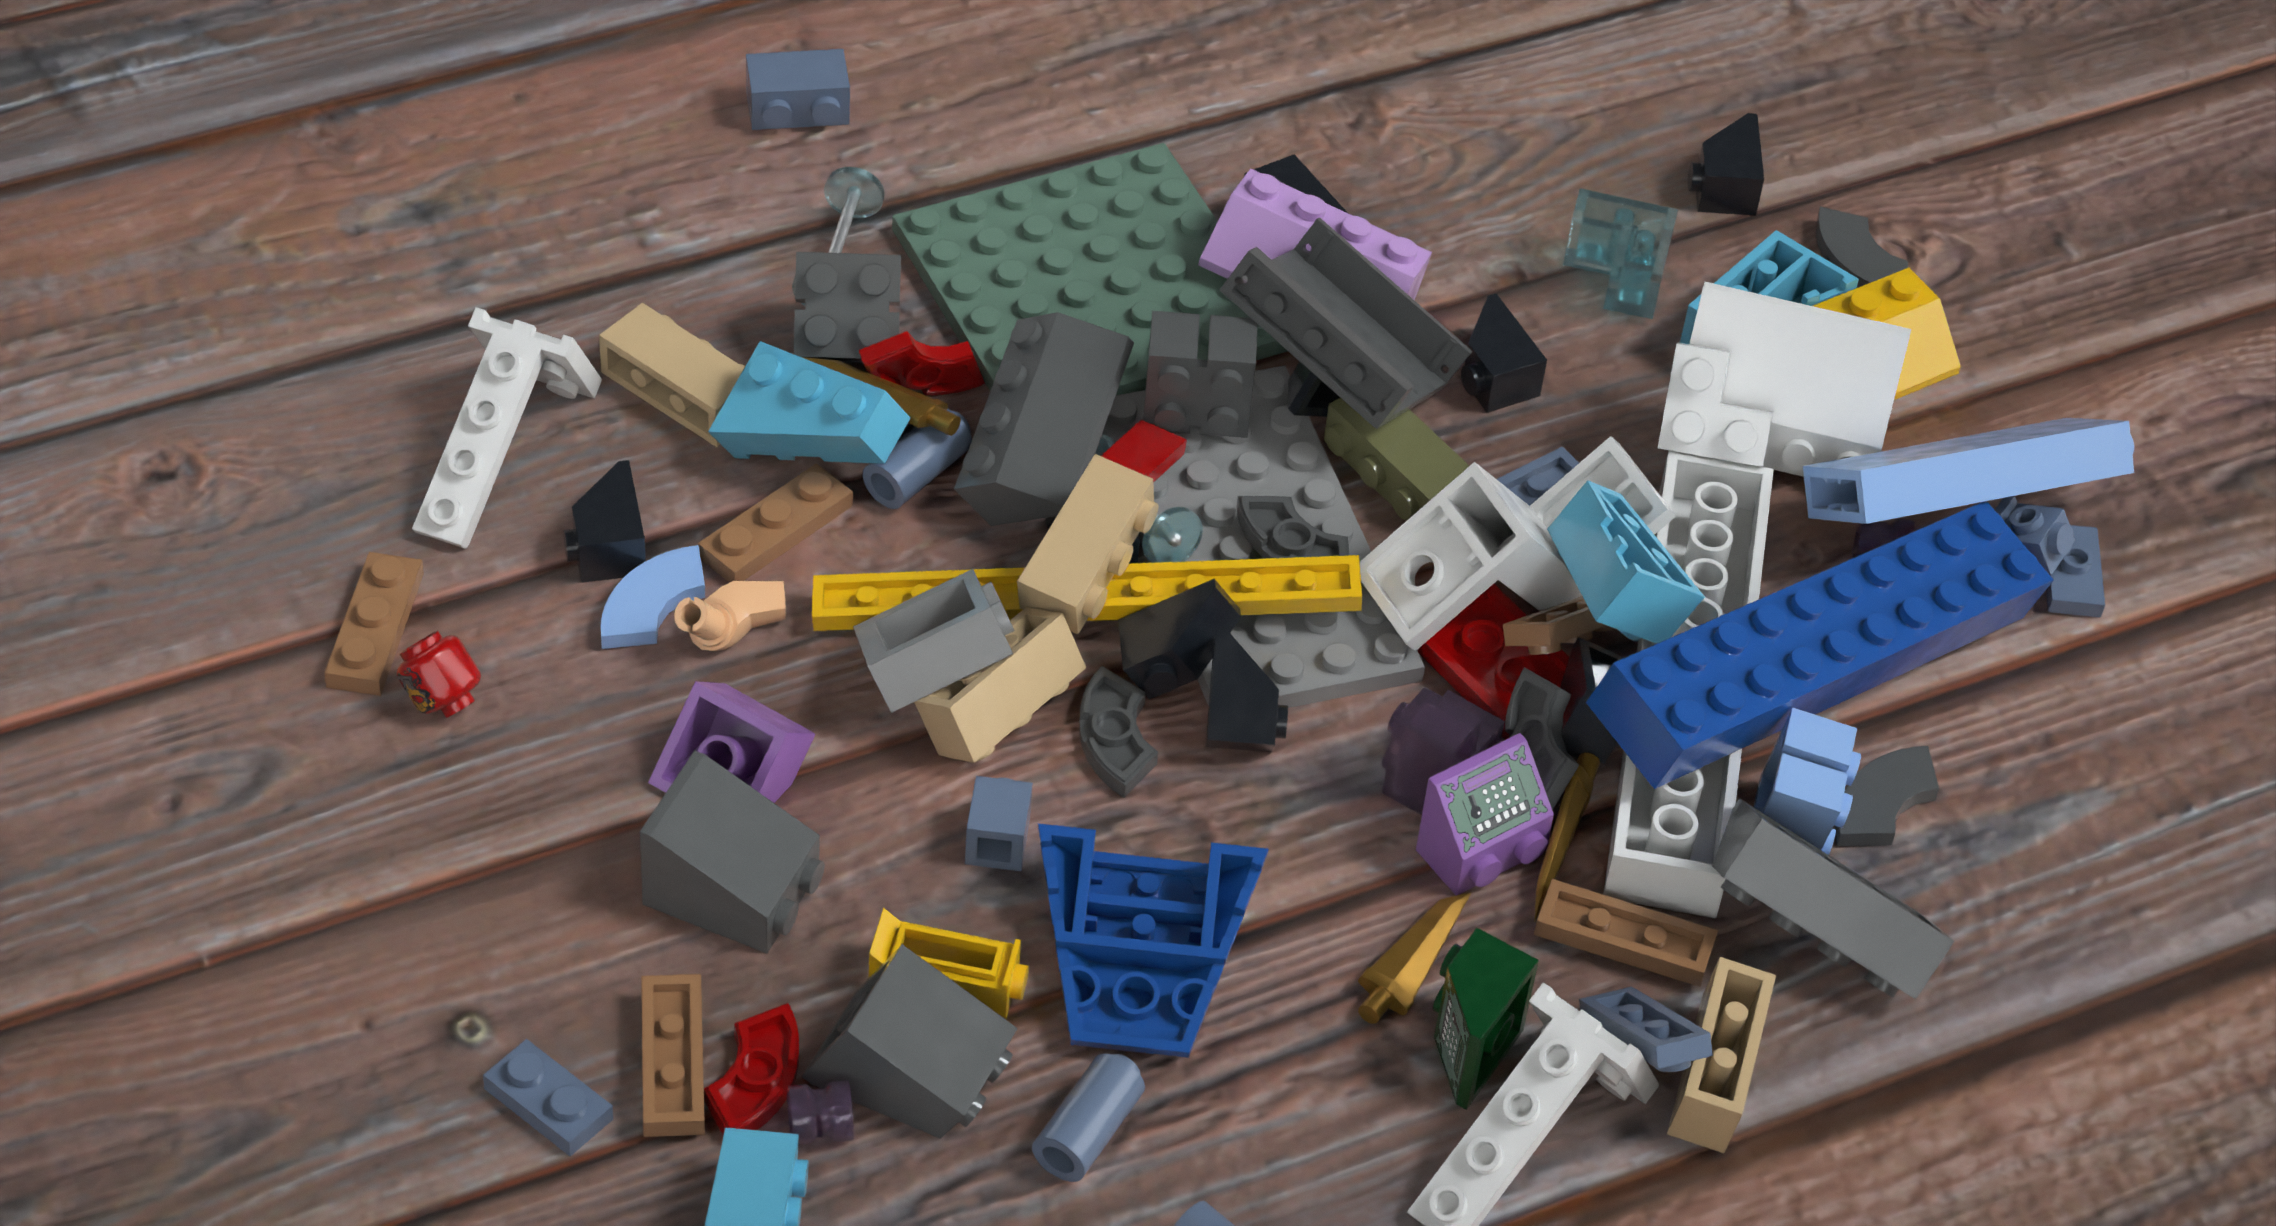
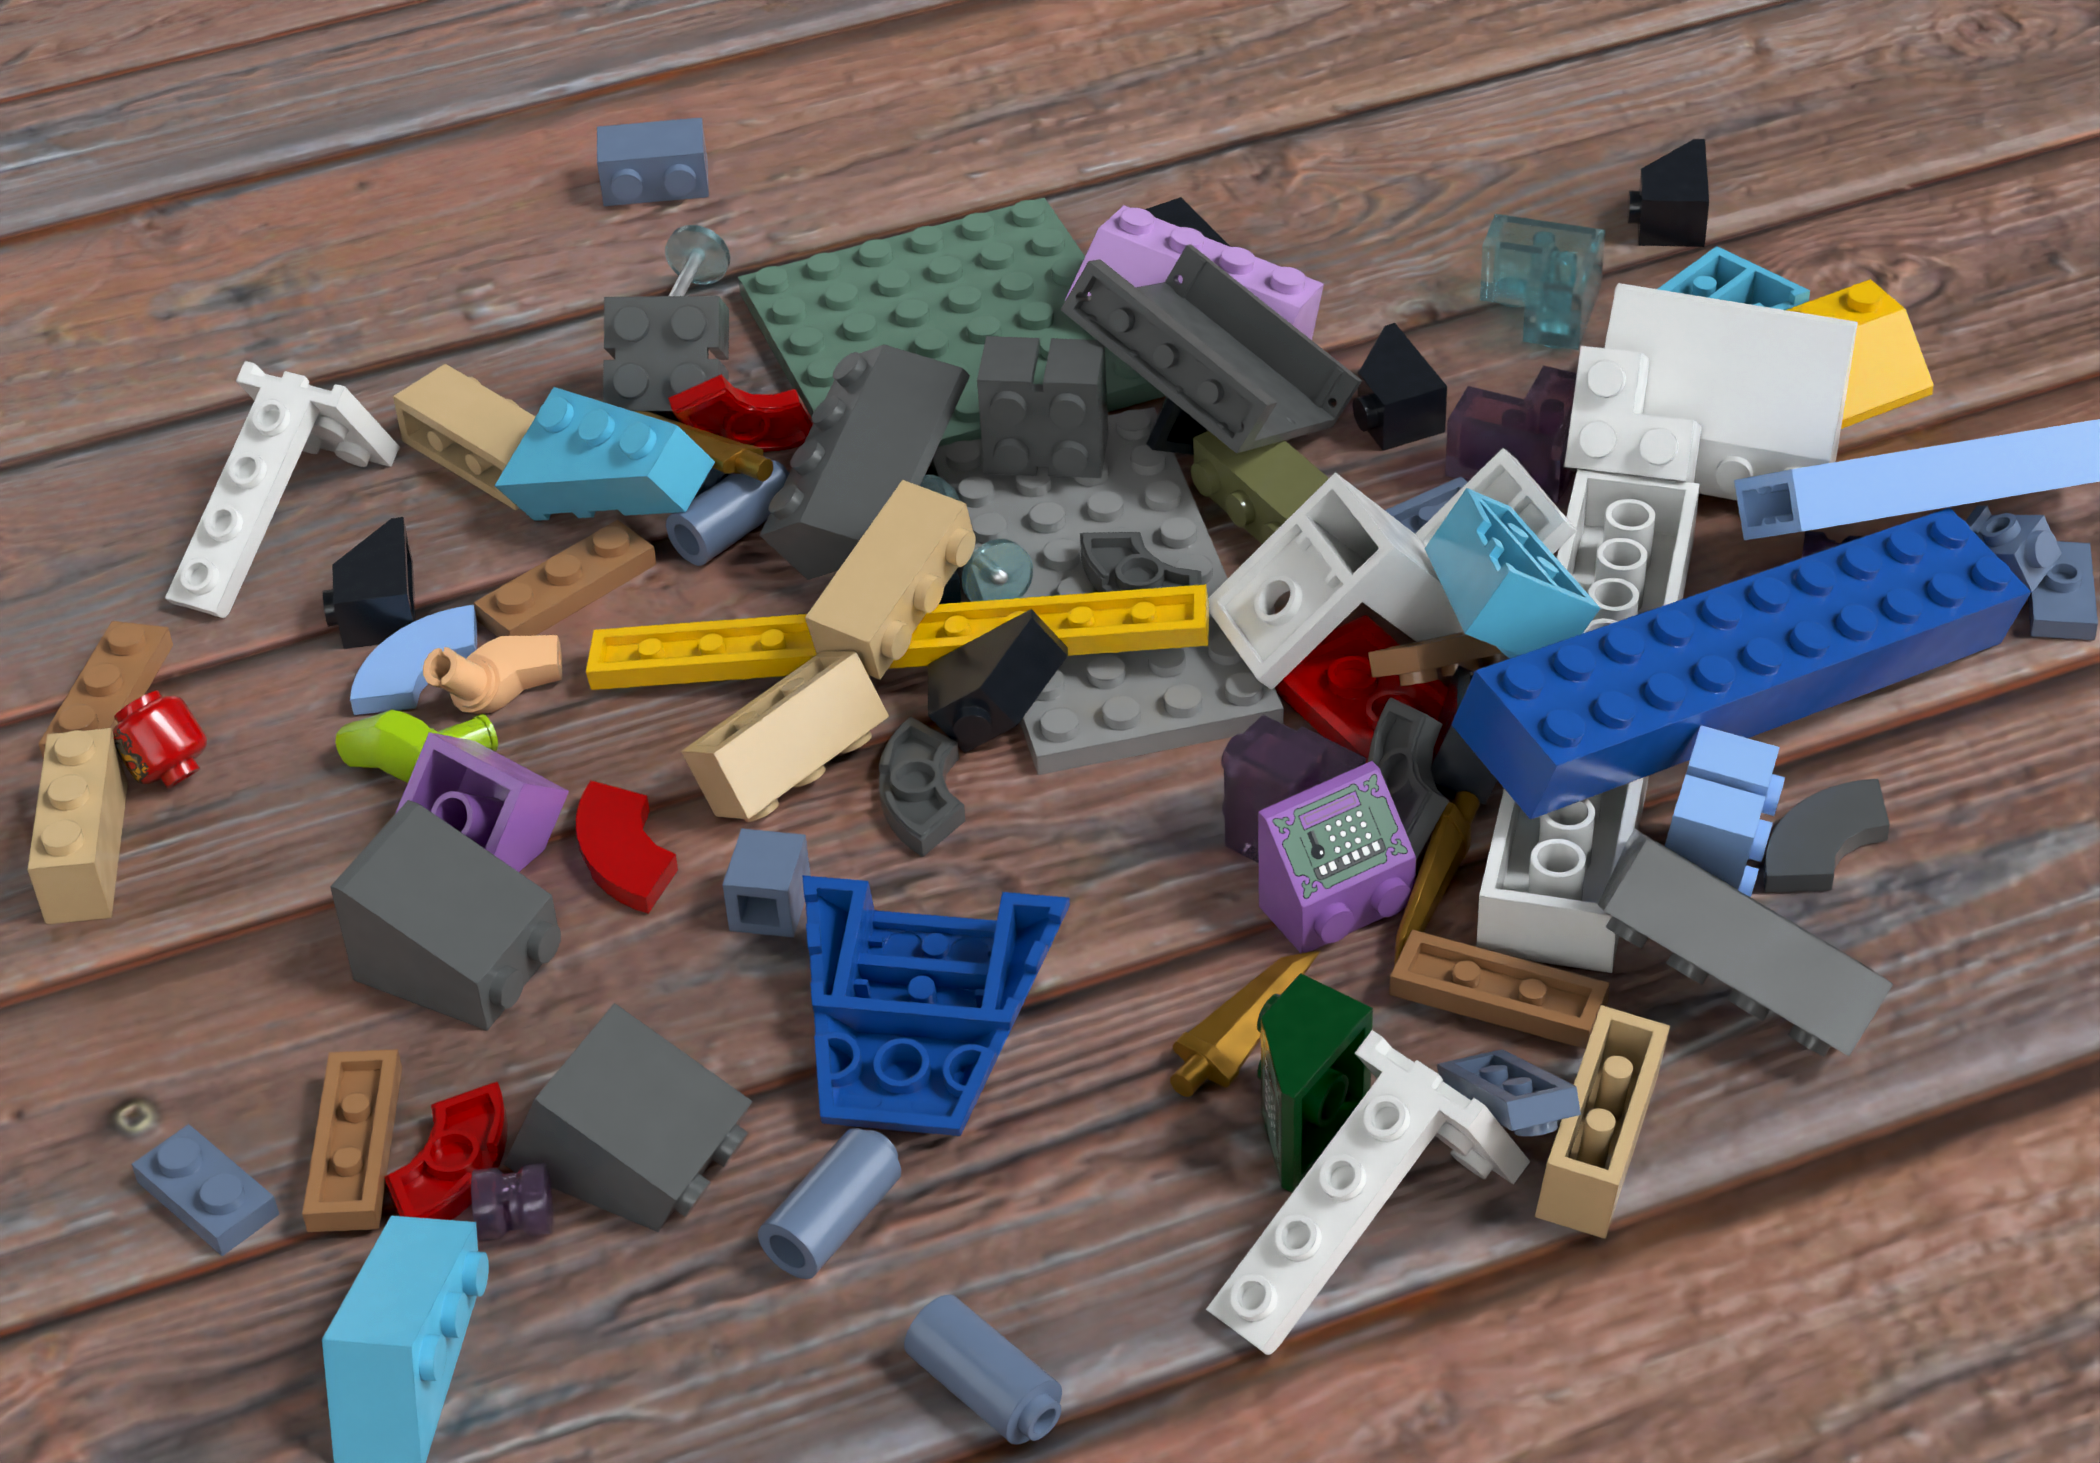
camera: 10 degrees right, 5 degrees down
(380, 756) = (78, 826): none -> tan brick
(658, 682) = (396, 739): none -> lime arm
(860, 786) = (618, 849): none -> red tile
(935, 639) = (710, 685): light grey window -> none
(977, 964) = (721, 1036): yellow window -> none
(1147, 449) = (985, 490): red tile -> none
(1242, 701) = (1060, 745): black slope -> none
(1596, 406) = (1528, 428): none -> clear purple brick
(1849, 245) = (1810, 264): dark grey tile -> none

